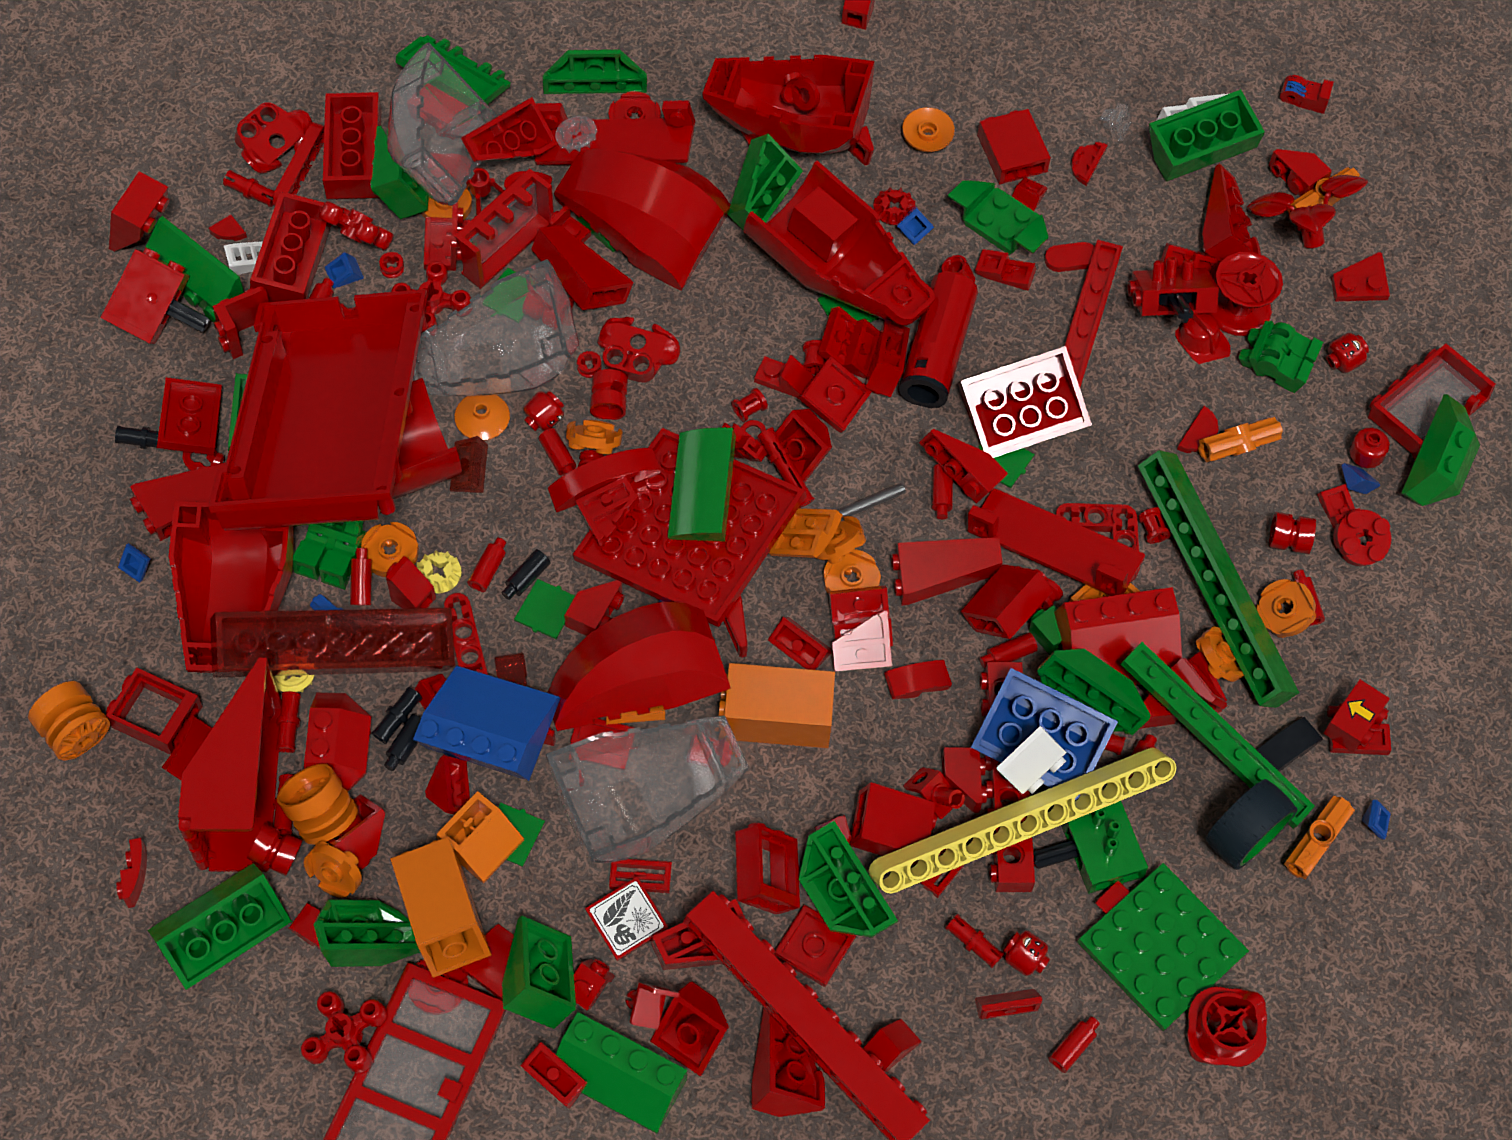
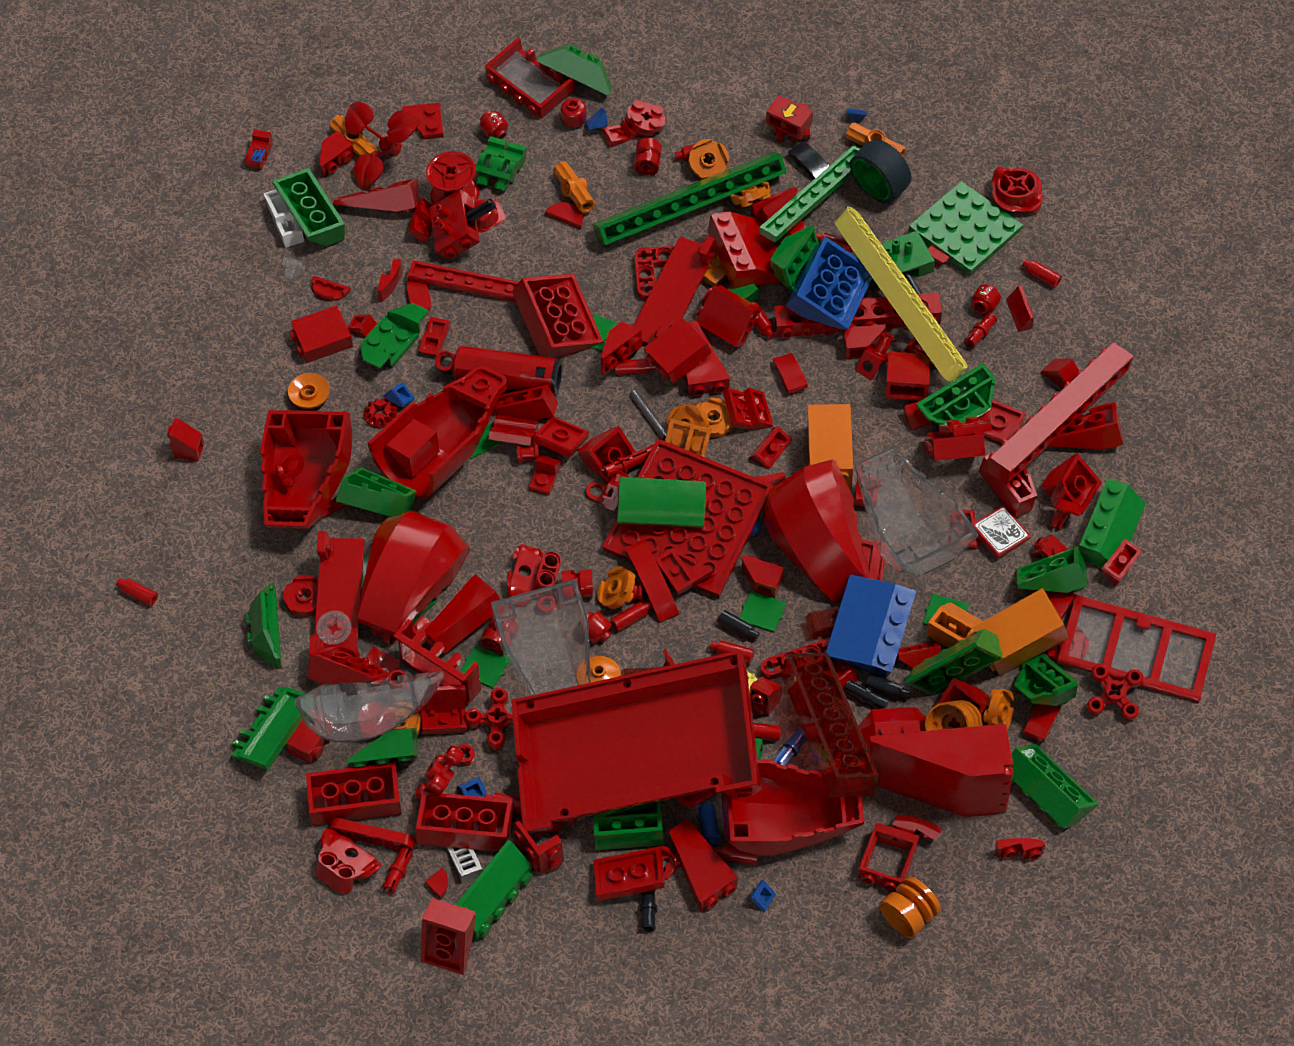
camera: 90 degrees left, 5 degrees down
(149, 296) = (524, 915): red piece -> none
(403, 809) = (956, 662): none -> green slope
(749, 404) = (574, 492): red bush -> none
(788, 881) = (969, 426): none -> red plate
(864, 645) = (770, 403): wing -> none
(946, 528) = (677, 351): none -> red brick
(1032, 760) = (857, 287): white slope -> none
(1085, 219) = (389, 282): none -> red slope
(1154, 525) = (649, 237): red bush -> none

